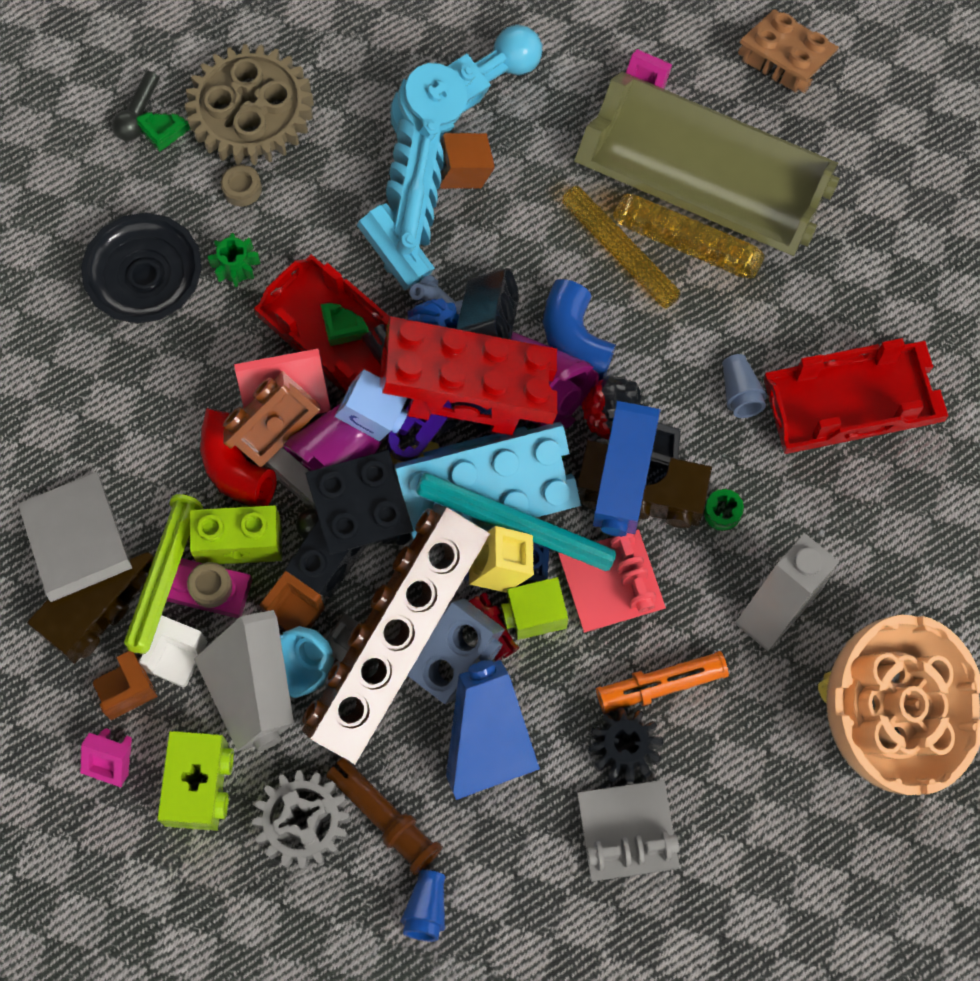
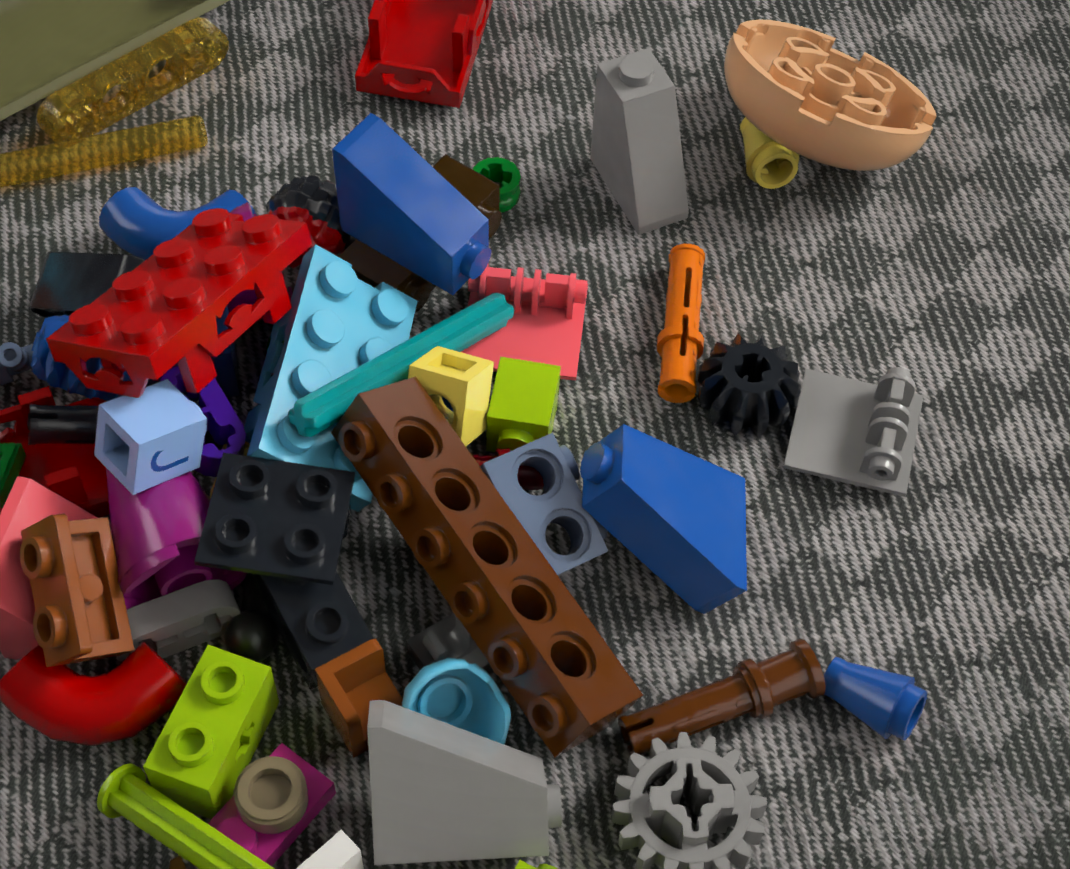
camera: 70 degrees left, 15 degrees down
(743, 389) = (353, 103): sand blue cone -> none

